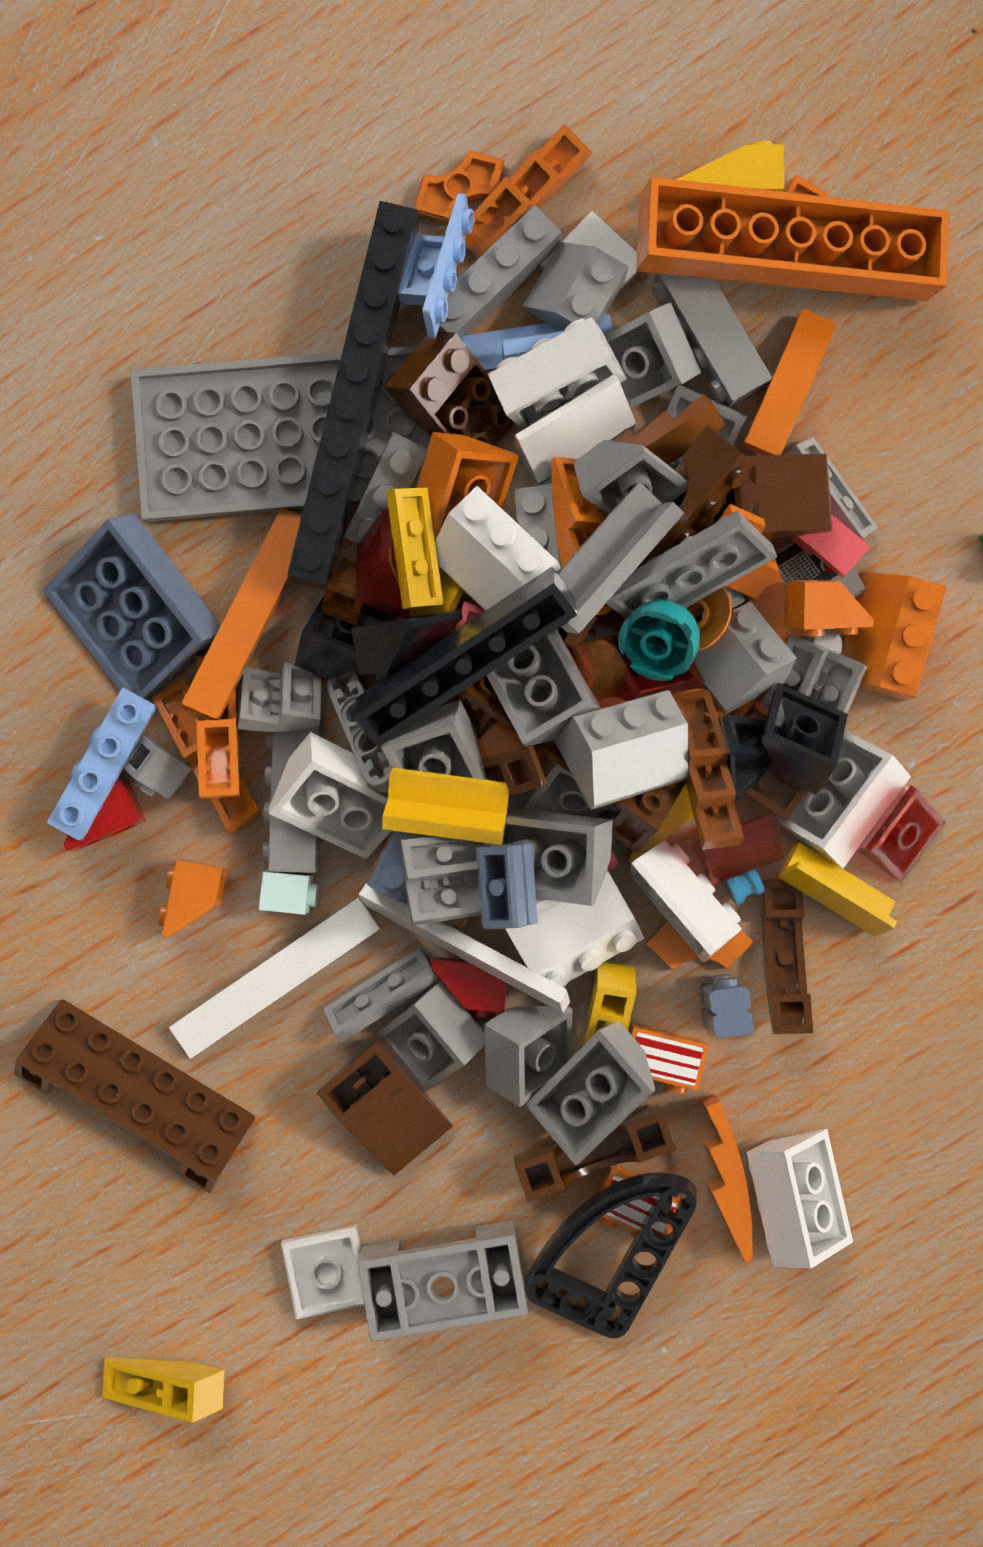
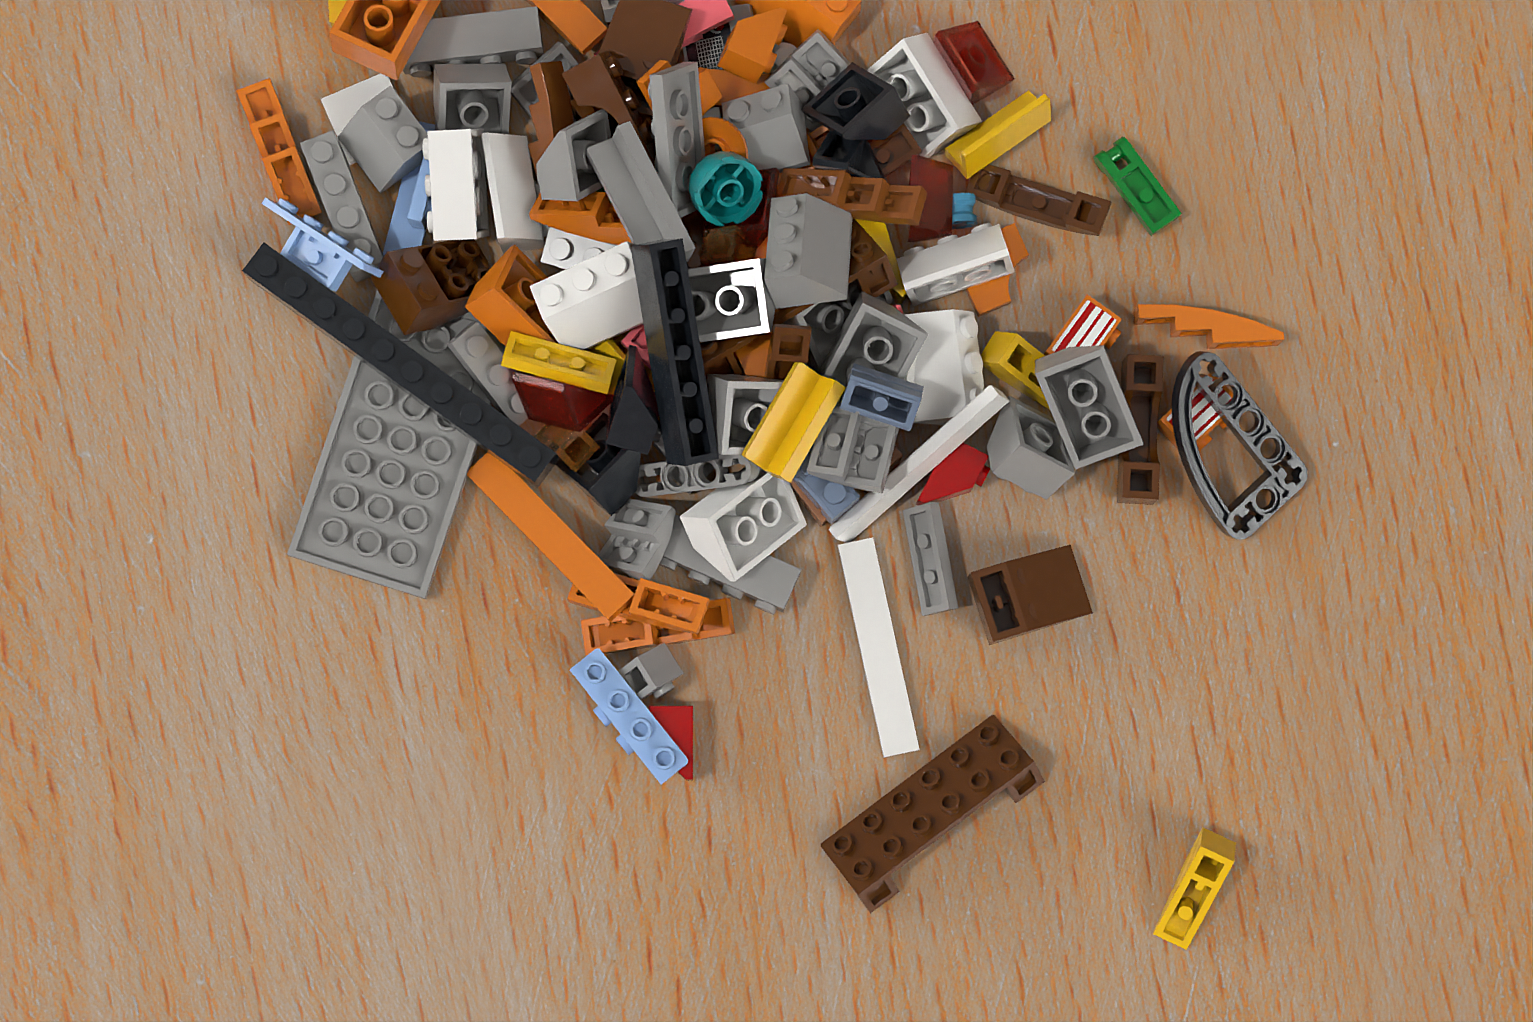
camera: 75 degrees left, 5 degrees down
(132, 607) = (500, 639): sand blue slope -> none
(194, 892) = (777, 686): orange slope -> none
(287, 892) = (808, 603): light aqua brick -> none
(324, 1271) = (1153, 706): white tile -> none
(433, 1036) = (985, 527): light grey slope -> none
(474, 177) = (248, 220): orange tile -> none
(484, 1277) = (1192, 638): light grey plate -> none
(726, 1006) = (1059, 265): sand blue brick -> none
(799, 1199) = (1249, 274): white slope -> none
(842, 1050) = (1138, 186): none -> green plate

